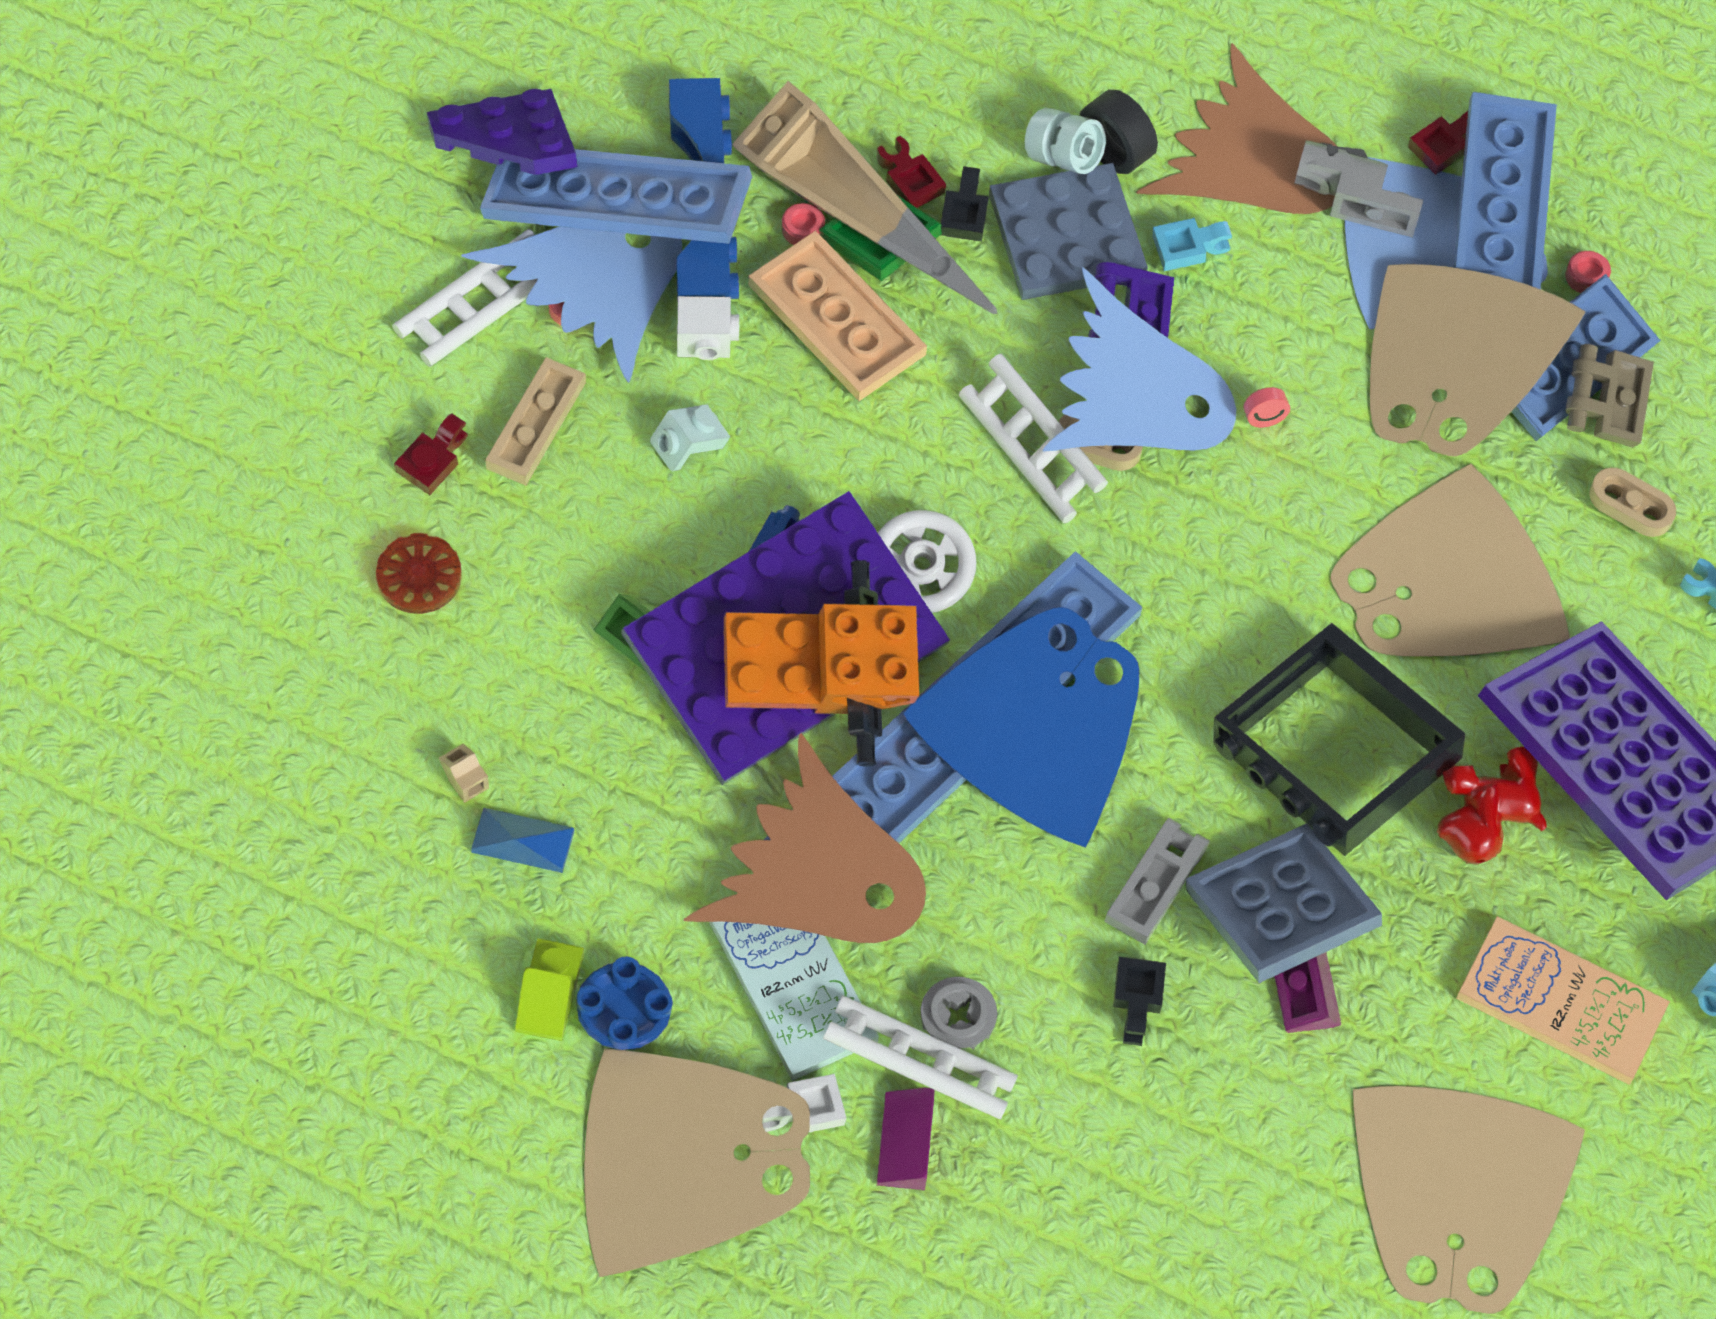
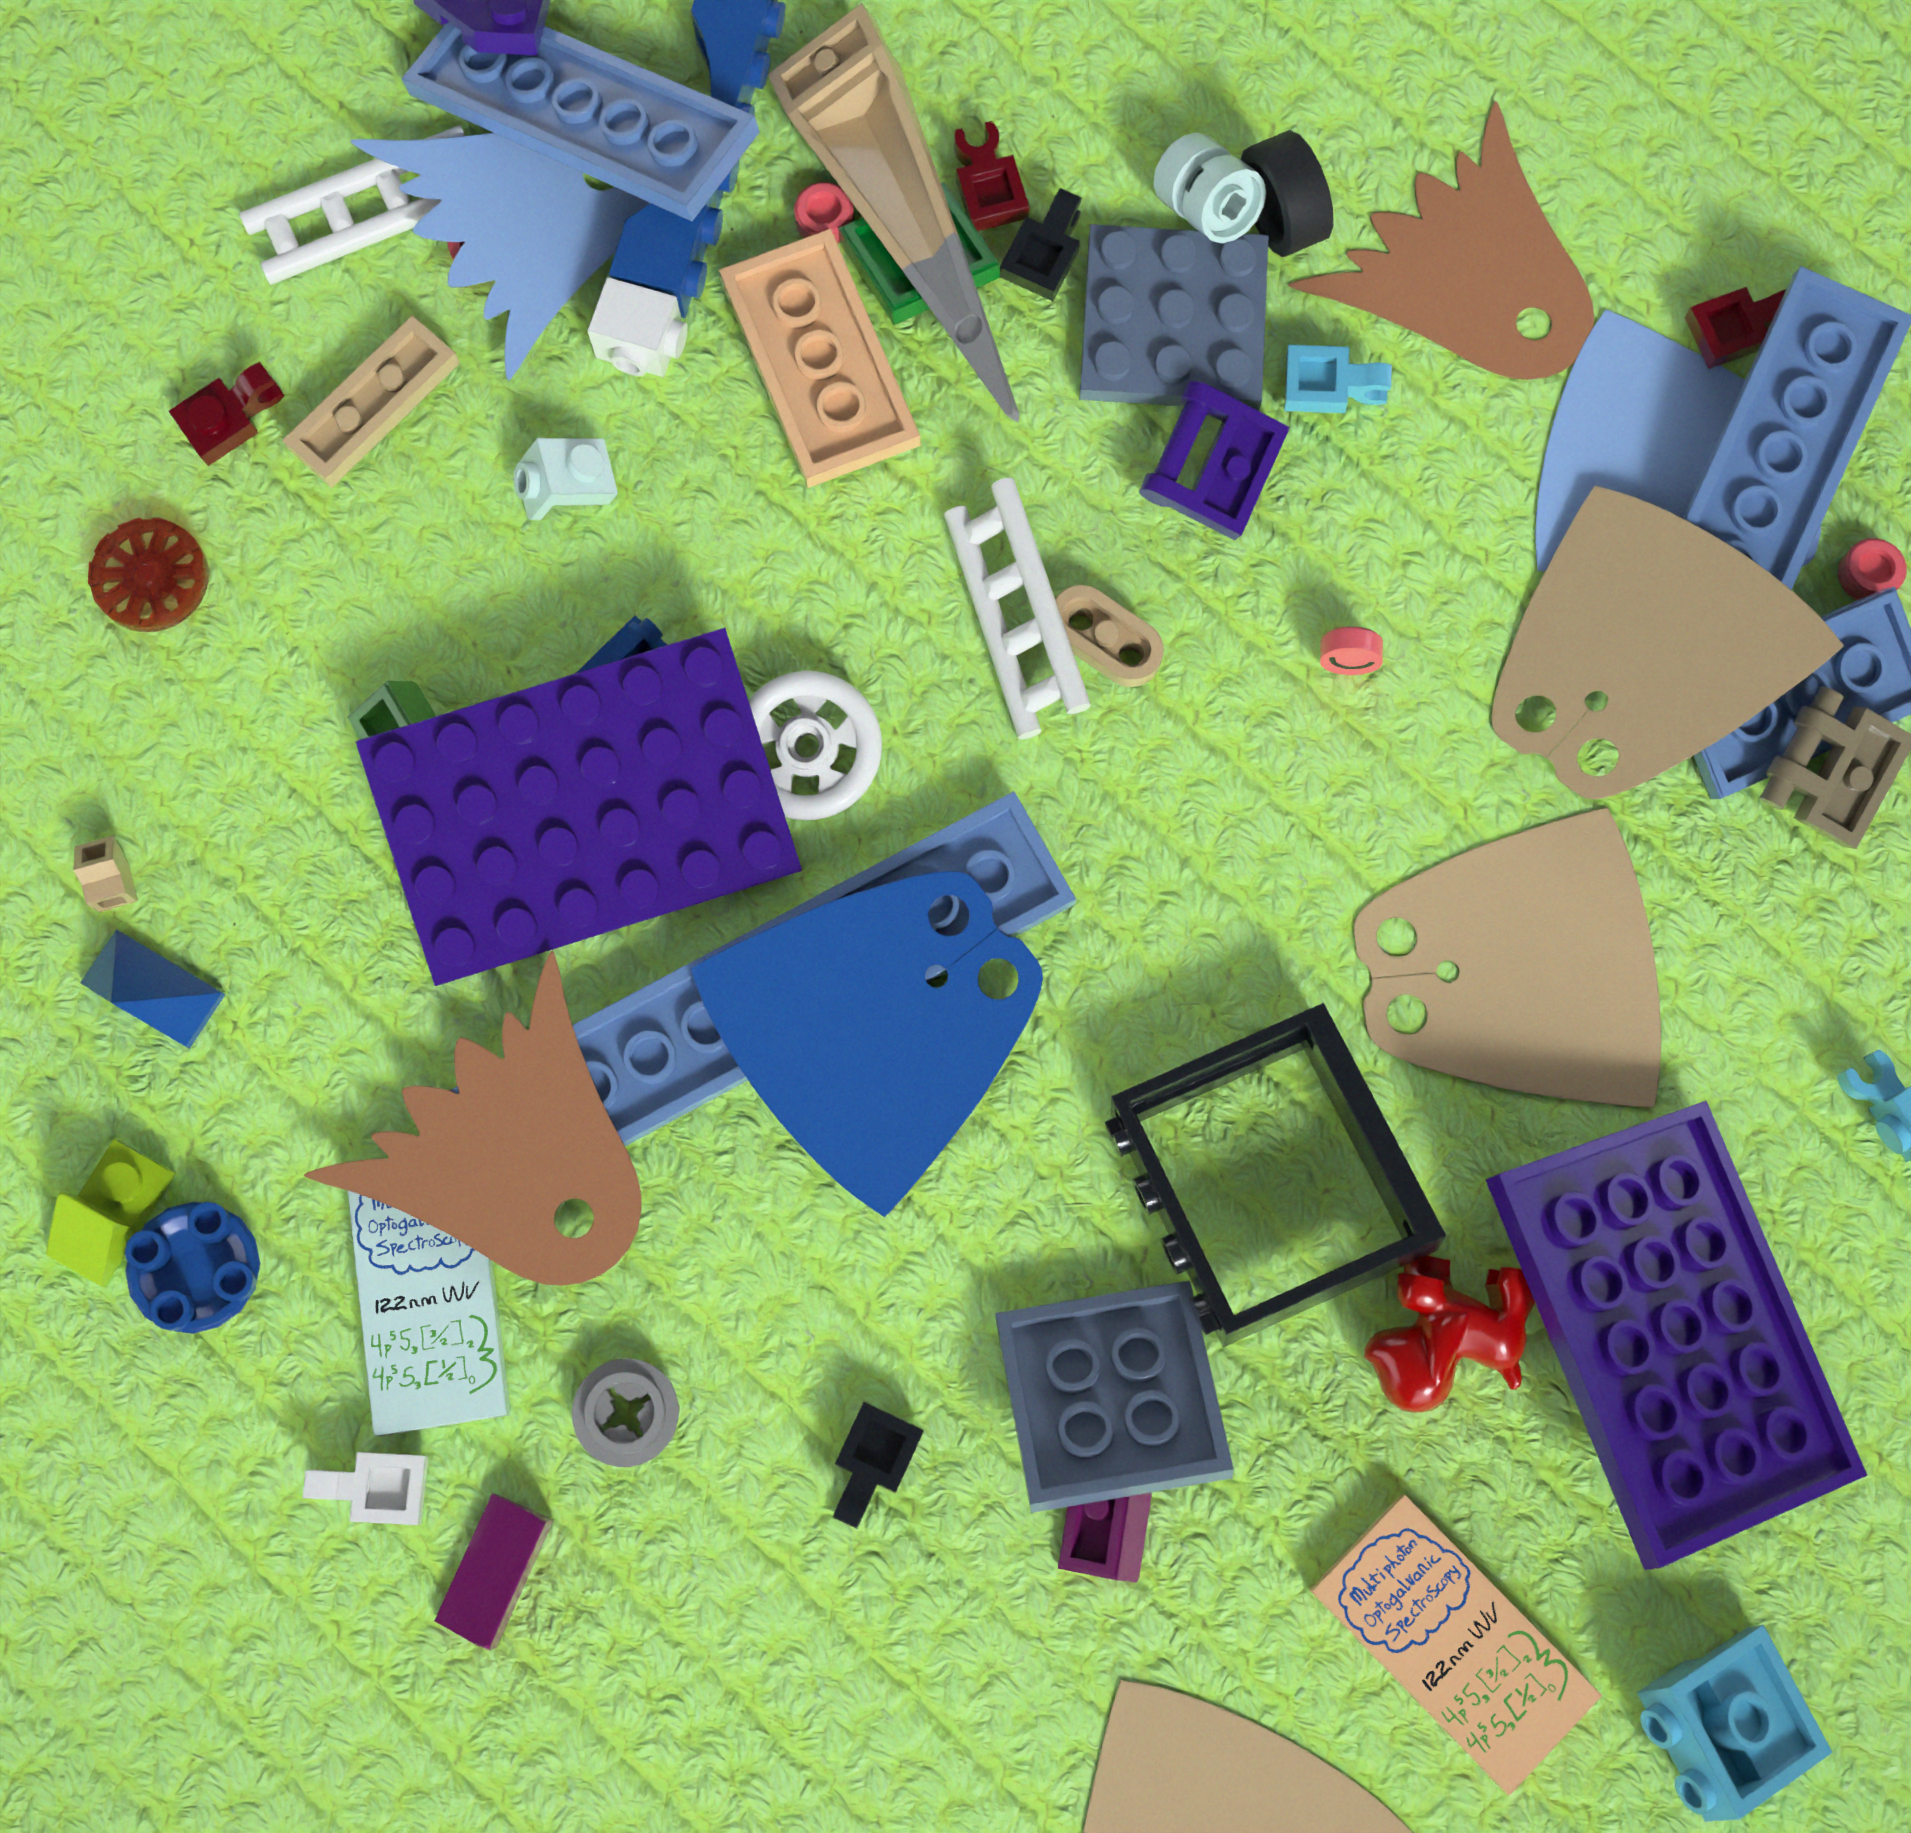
camera: 20 degrees right, 15 degrees up
(665, 1161) = (163, 1509): tan piece -> none
(835, 661) = (602, 869): orange piece -> none
(935, 1077) = (546, 1512): white bar -> none
(1139, 386) = (1185, 574): light blue piece -> none
(1156, 882) = (956, 1302): light grey plate -> none
(1357, 188) = (1590, 359): light grey plate -> none
(1633, 501) = (1816, 928): tan plate -> none

